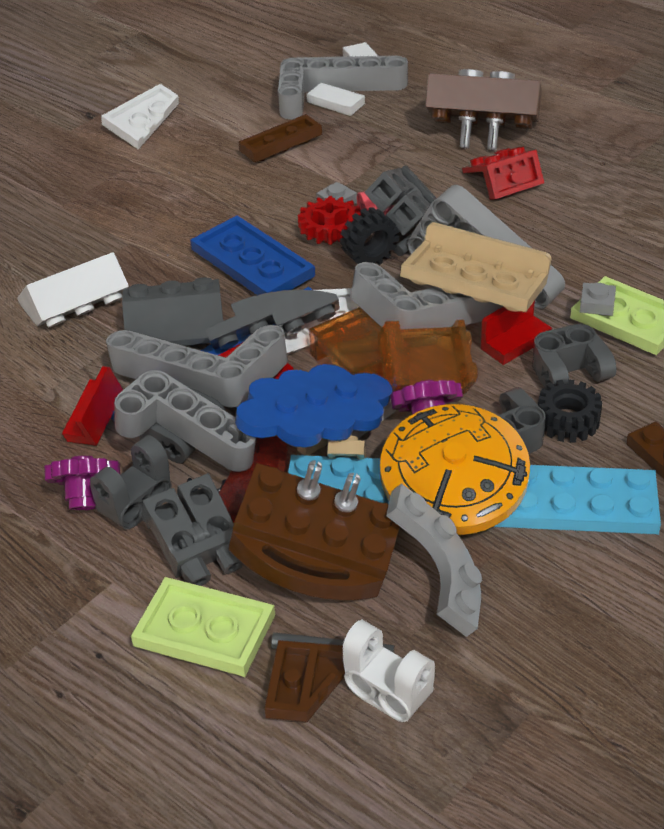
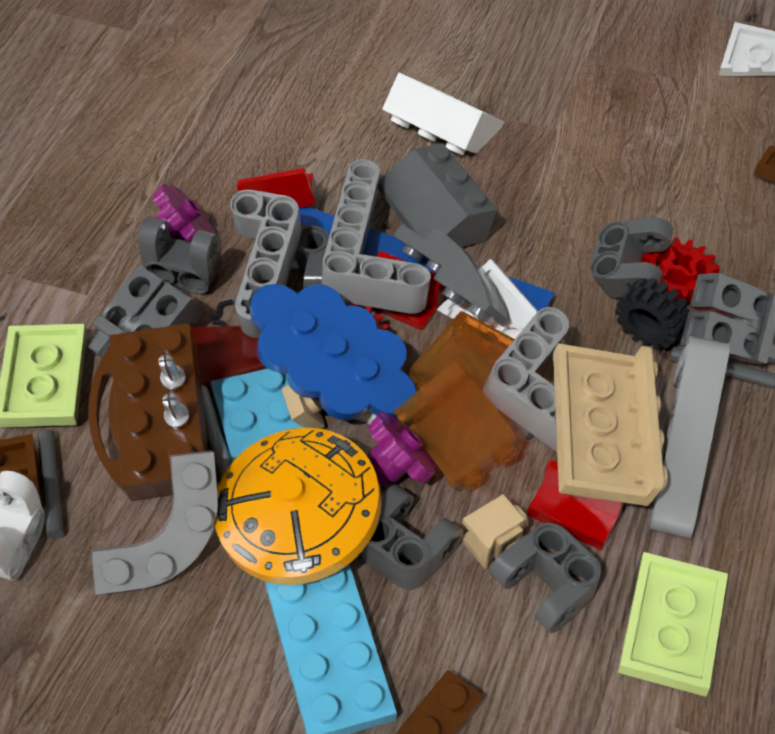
camera: 65 degrees right, 10 degrees up
(252, 257) = (569, 230): blue plate -> none
(296, 219) = (620, 250): none -> dark grey piece
(336, 191) = (737, 263): light grey plate -> none
(520, 370) = (493, 529): none -> tan window
(571, 397) = (461, 575): black tyre -> none
(598, 299) = (667, 574): light grey plate -> none

